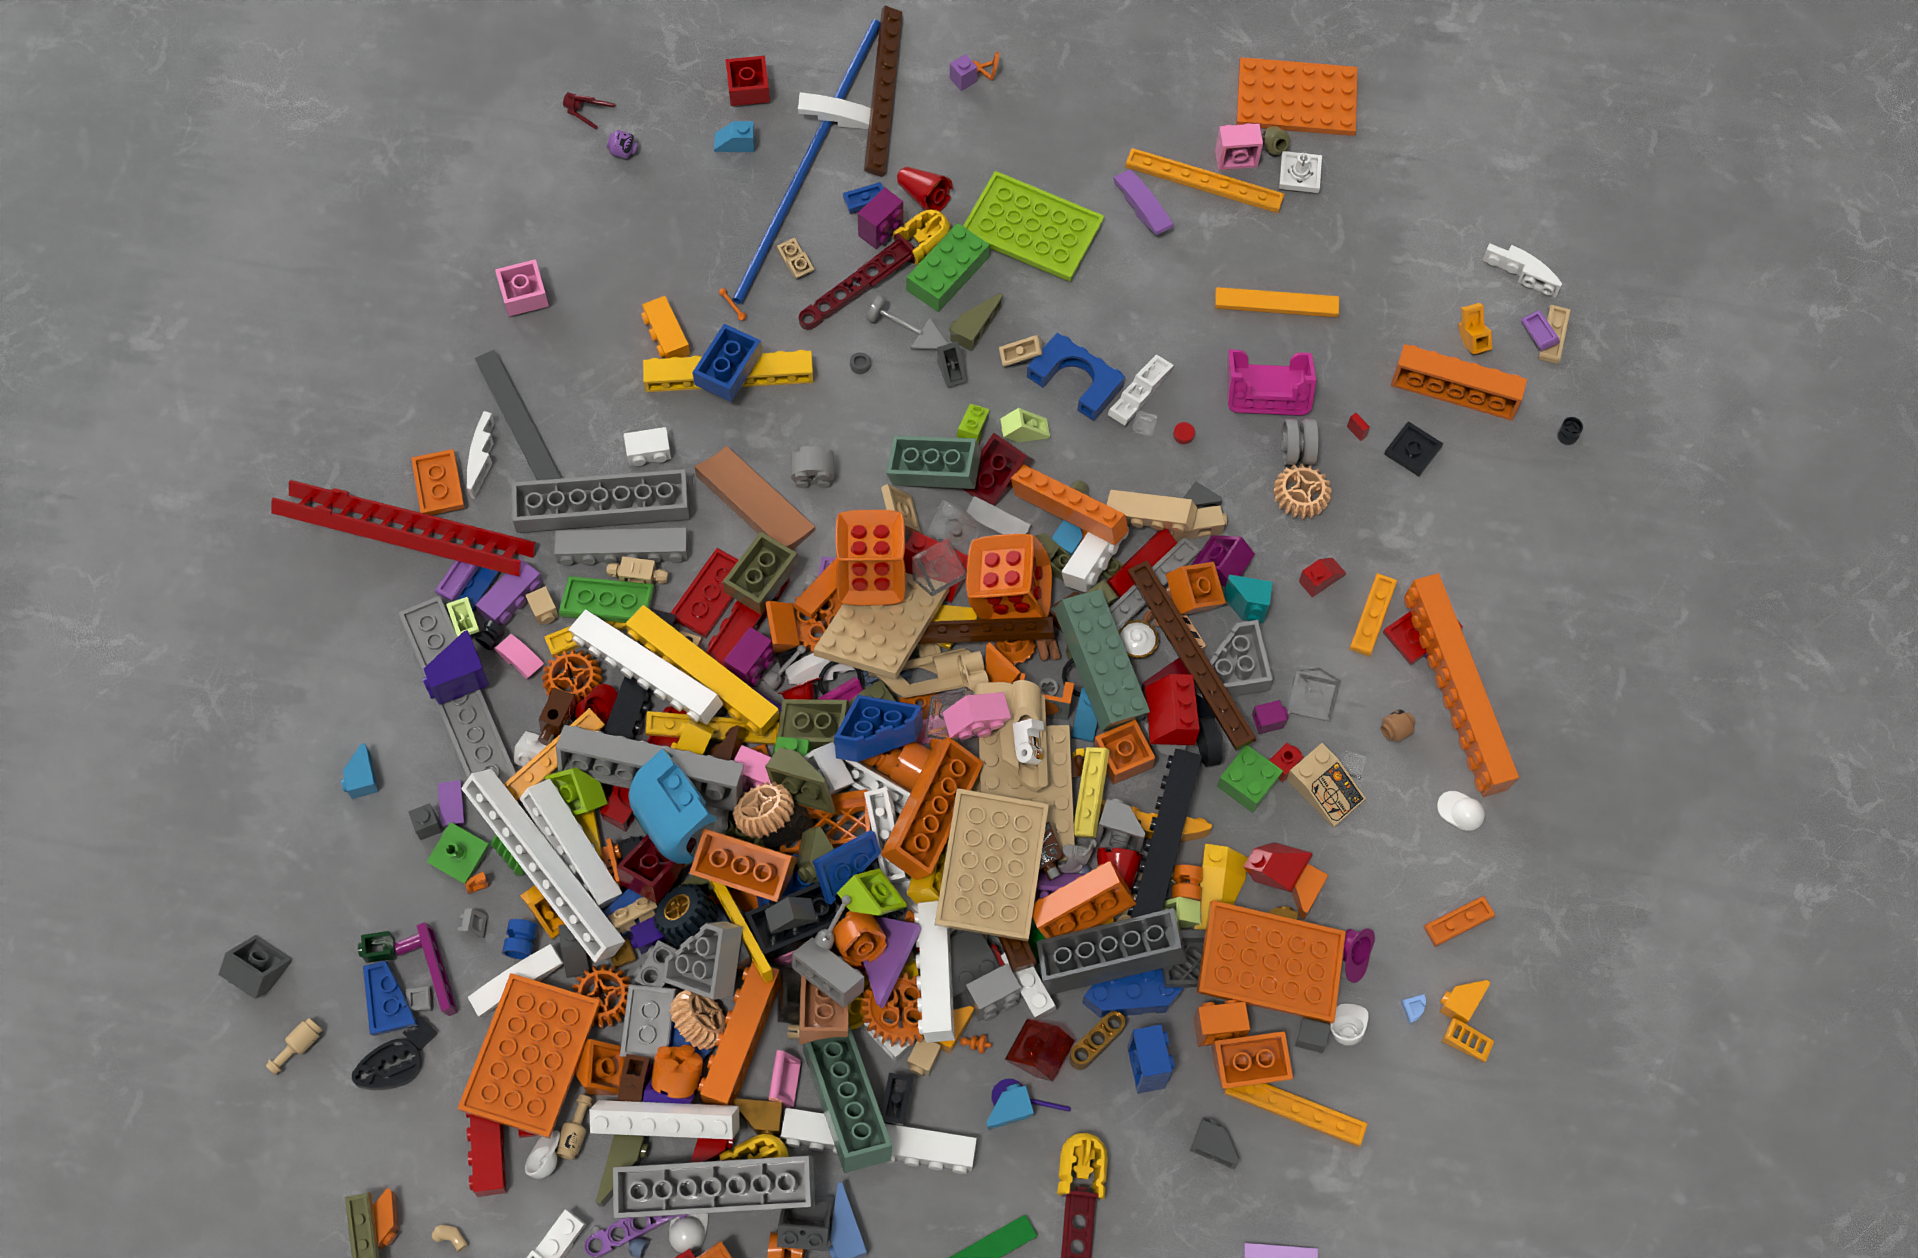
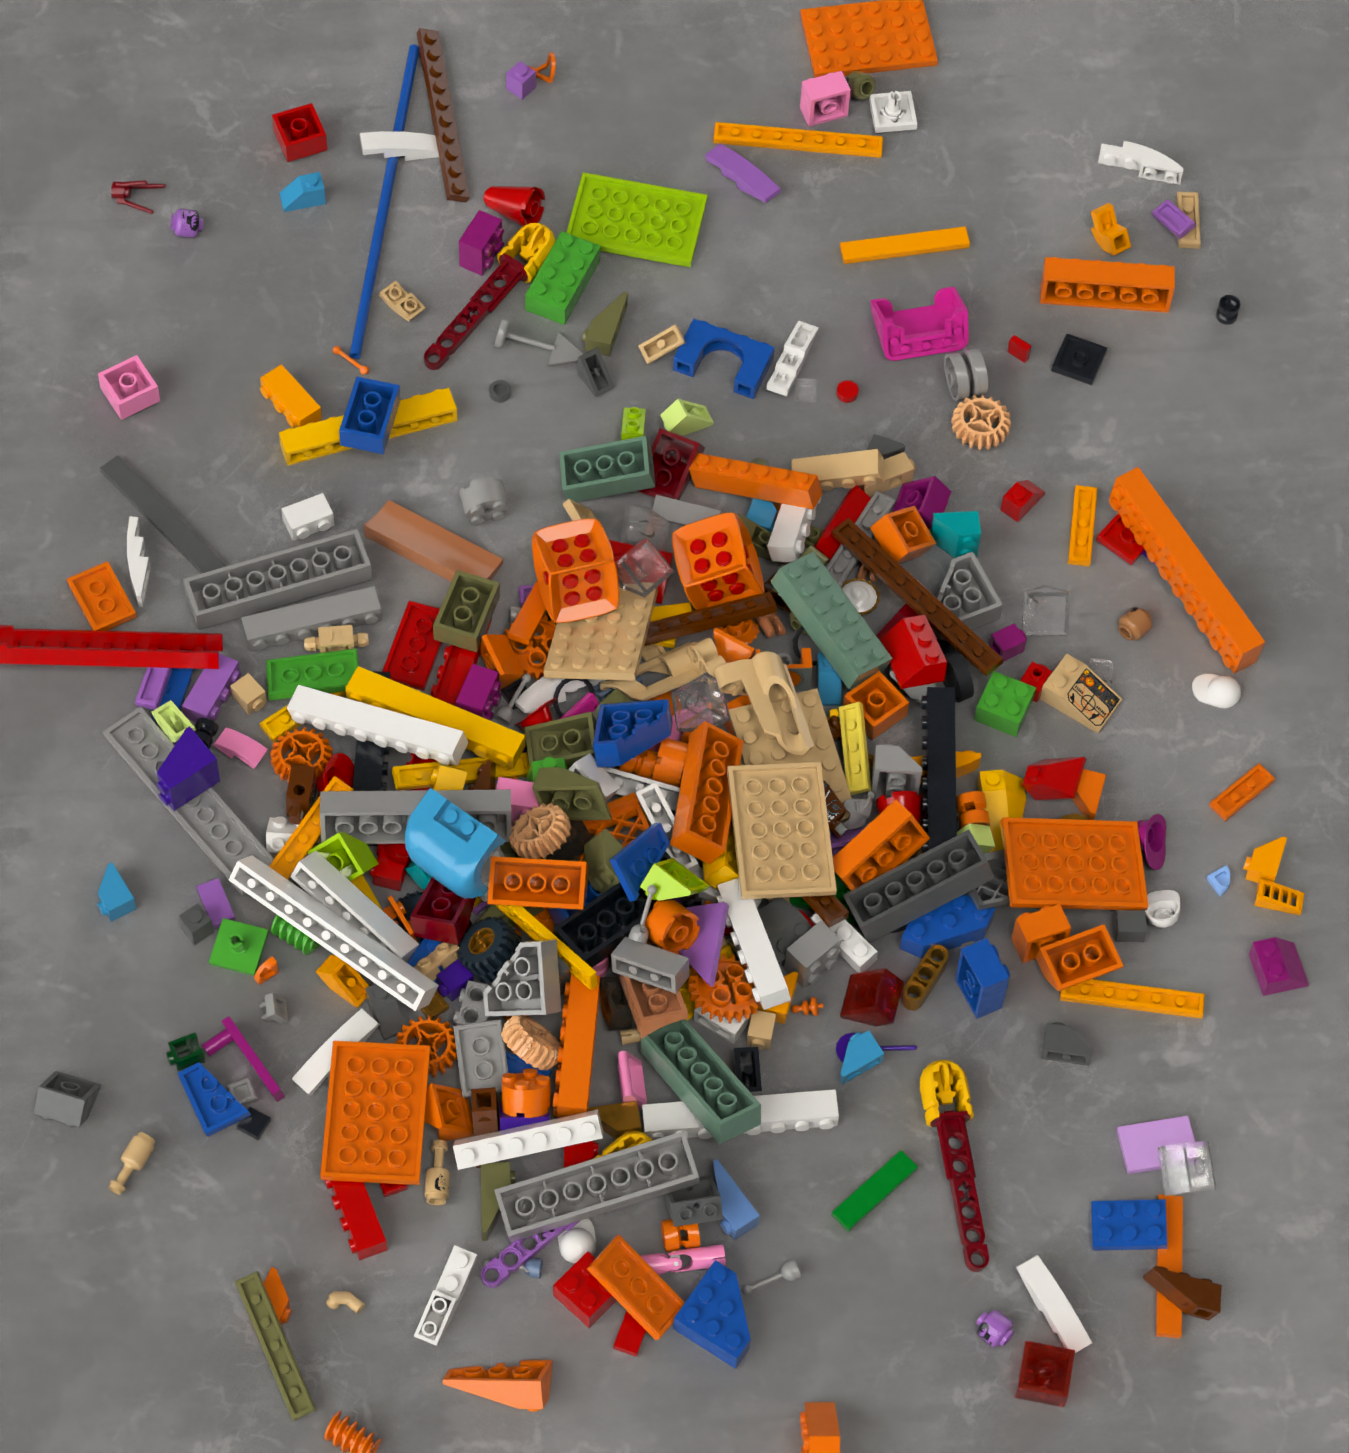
camera: 15 degrees left, 5 degrees down
(396, 1076) = (226, 1149): black piece -> none
(520, 939) = (328, 1011): blue wheel -> none
(543, 1157) = (415, 1206): white cap -> none
(790, 914) = (598, 917): dark grey slope -> none
(858, 198) = (453, 226): blue plate -> none
(976, 715) = (727, 693): bright pink brick -> none
(1027, 741) = (783, 707): white leg -> none
(1448, 1112) = (1277, 966): none -> magenta slope

